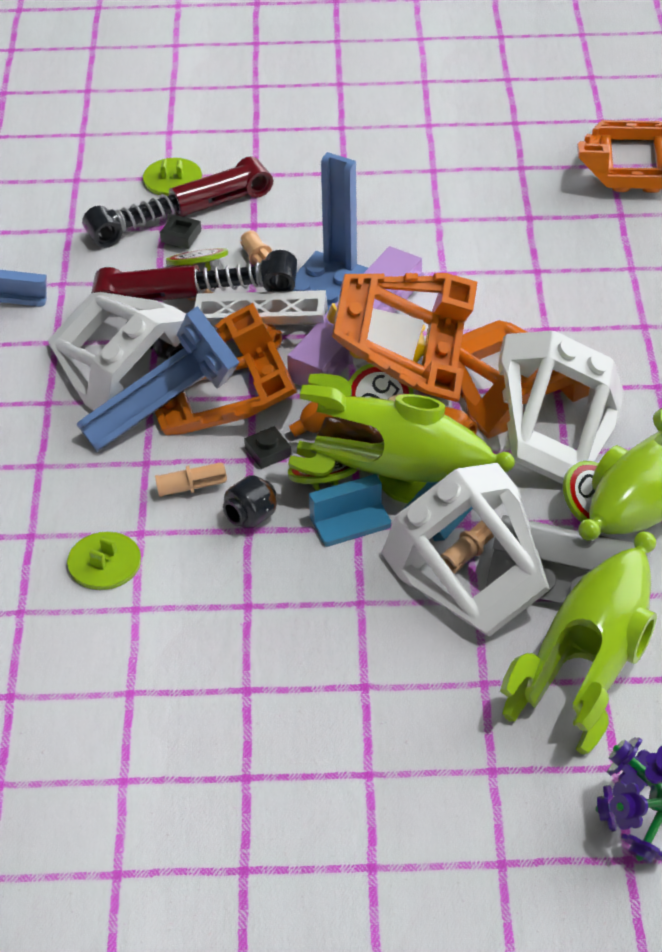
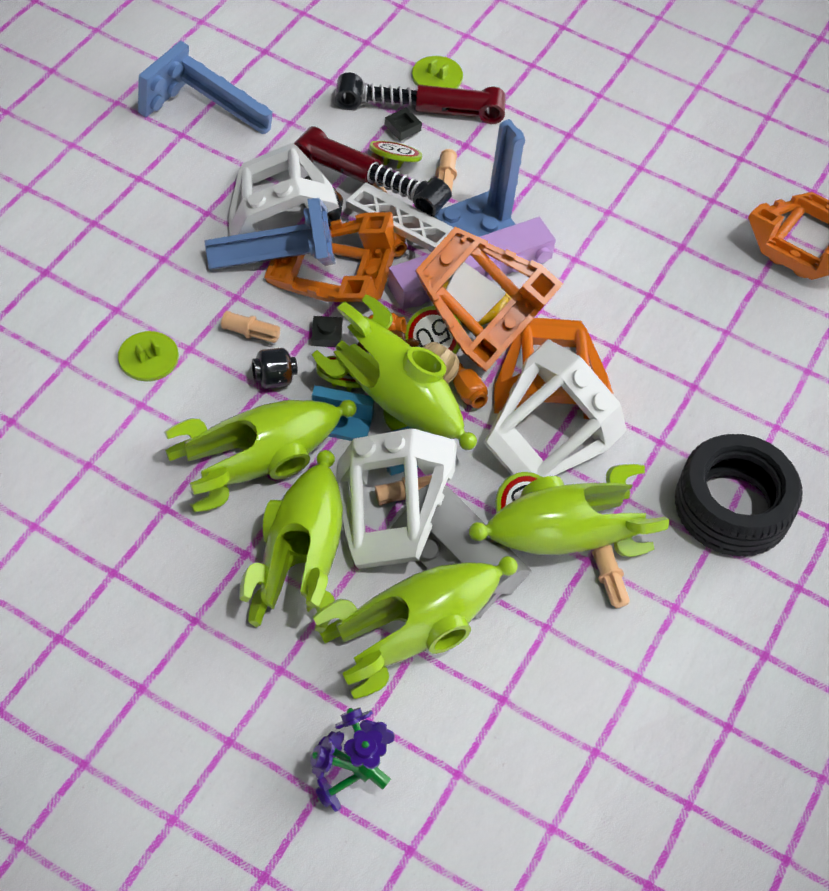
camera: 25 degrees right, 10 degrees up
(308, 561) = (273, 438): none -> lime piece
(418, 623) = (296, 531): none -> lime piece

